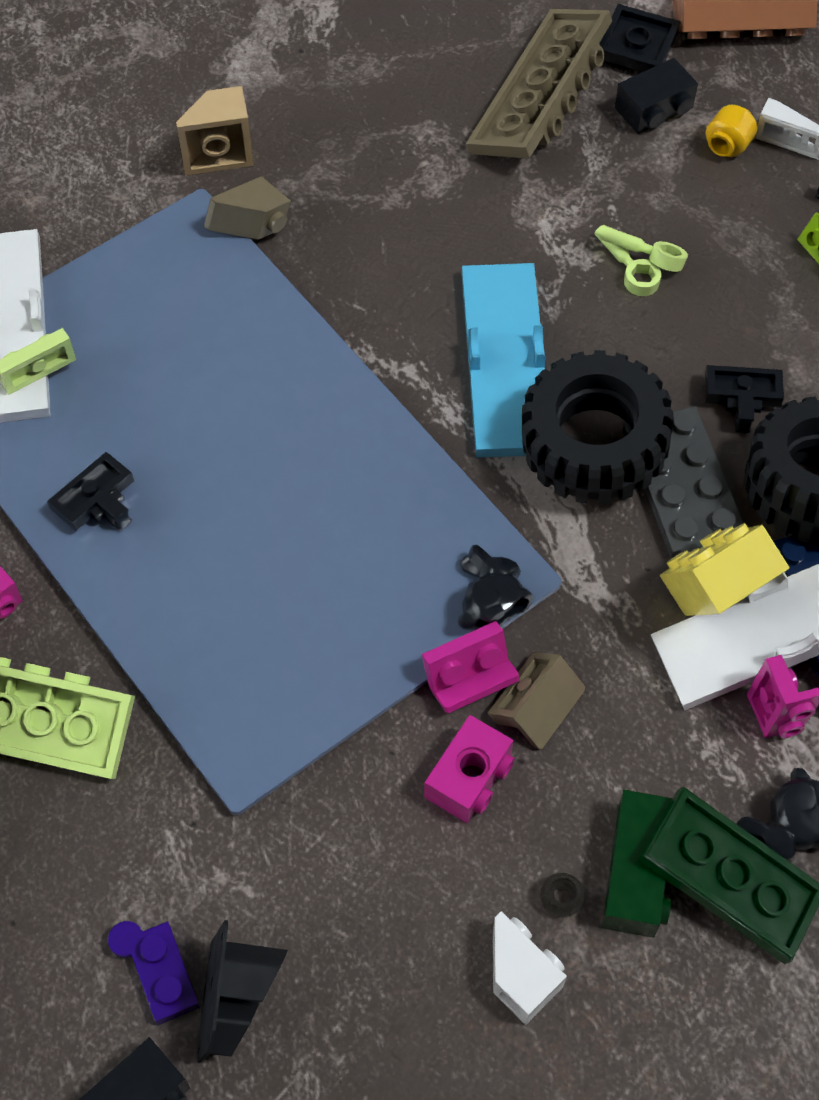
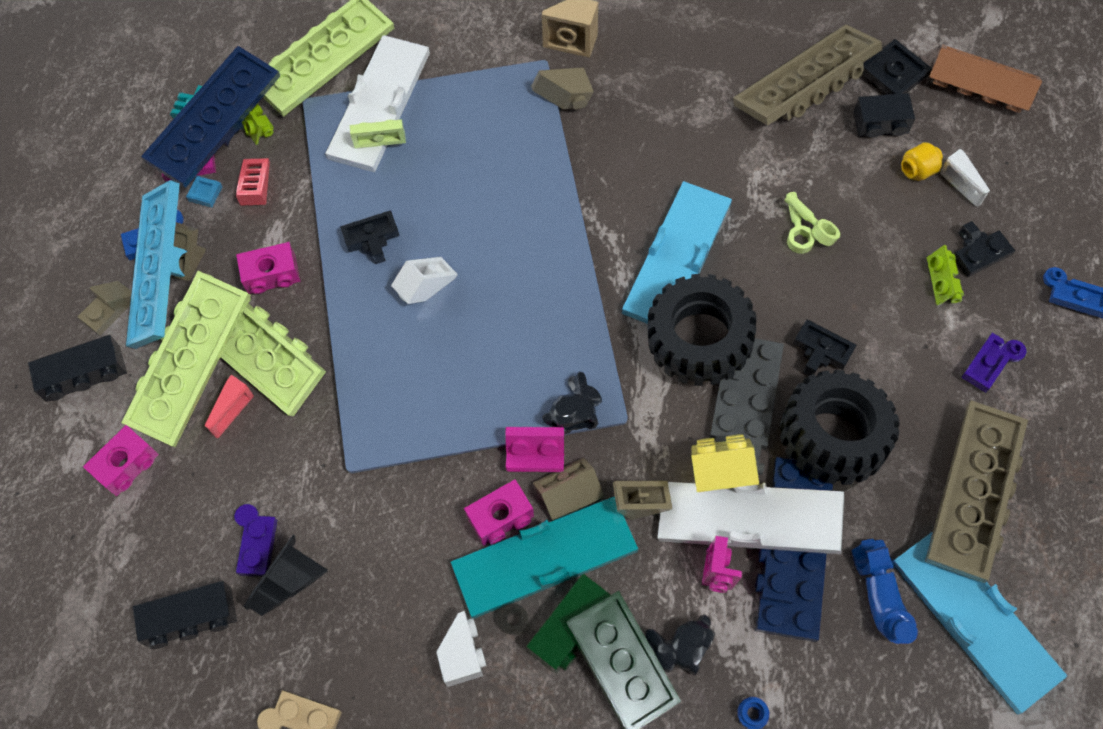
camera: 30 degrees right, 5 degrees up
(19, 798) = (229, 404): none -> coral slope
(200, 521) = (422, 279): none -> white slope
(553, 800) = (543, 557): none -> teal piece
(640, 663) = (642, 498): none -> dark tan slope

